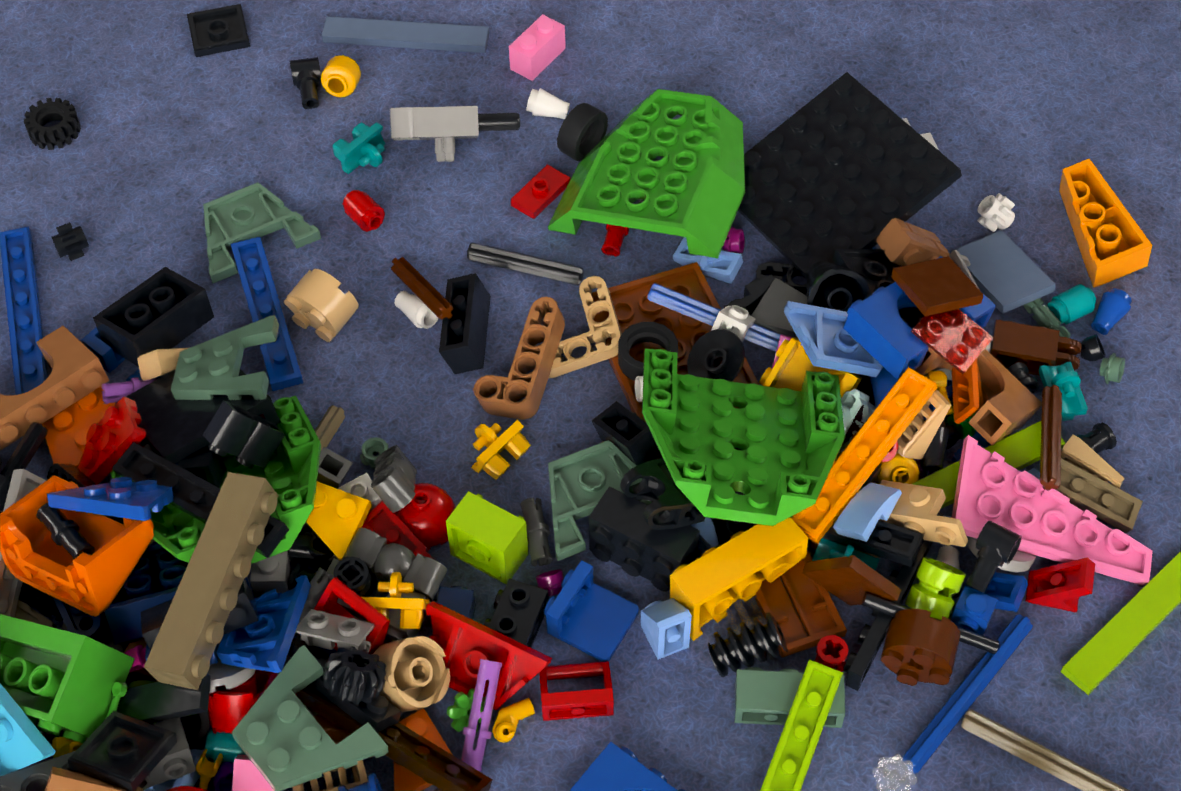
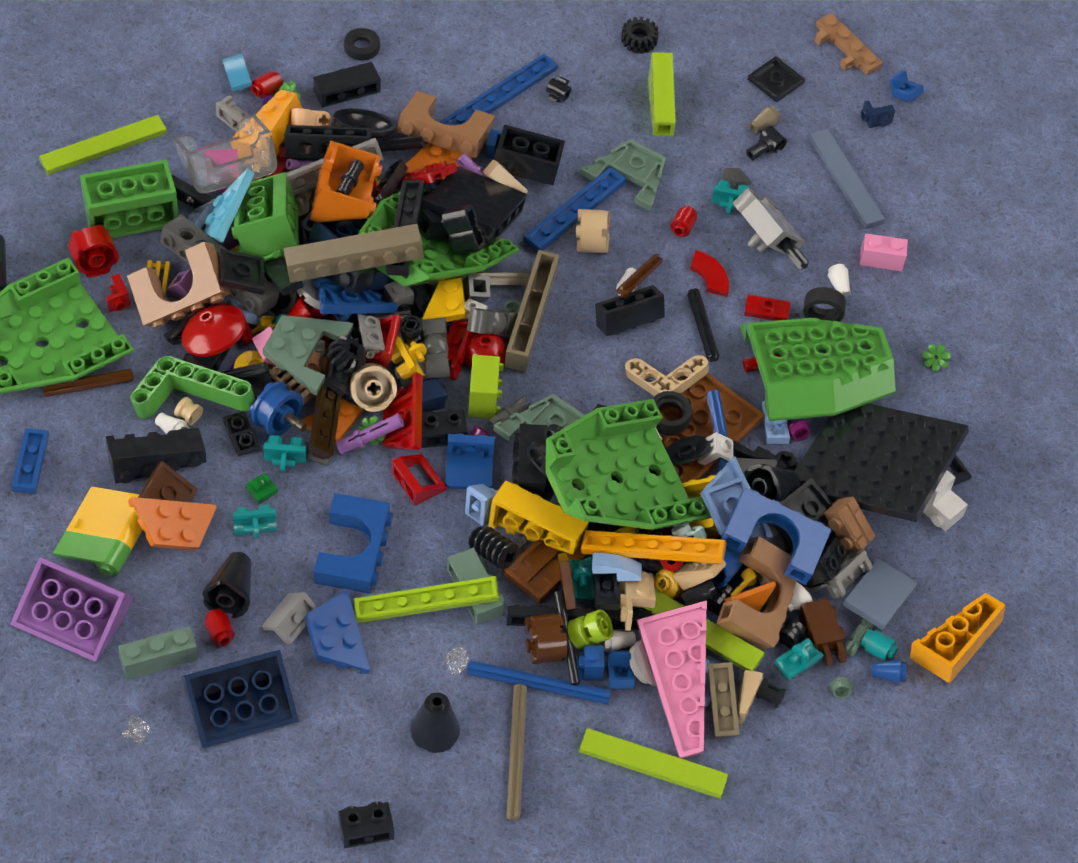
camera: 55 degrees right, 0 degrees up
(117, 499) = (378, 188): blue wing -> none
(163, 140) = (662, 94): none -> lime slope
(216, 363) = (508, 194): sand green wing -> none
(271, 65) = (767, 117): none -> dark tan cone
(332, 132) = (735, 177): none -> dark grey slope
(340, 76) = (781, 159): yellow head -> none
(389, 419) = (531, 311): none -> dark tan brick
(454, 220) = (712, 273): none -> red tile
(490, 458) = (556, 365): yellow hips -> none
(508, 718) = (379, 453): yellow arm -> none
(543, 325) = (621, 355): medium nougat beam -> none
(707, 70) = (936, 357): none -> bright green plant
(836, 648) = (515, 595): red bush -> none
(937, 286) = (795, 529): reddish brown tile -> none
(953, 337) = (767, 556): clear red hinge -> none
(995, 547) = (634, 647): black pin -> none
(996, 212) = (928, 572): white gear -> none
(1051, 438) = (743, 654): reddish brown axle -> none
(1061, 584) = (644, 708): red slope -> none
(1092, 348) = (854, 667): black hinge -> none

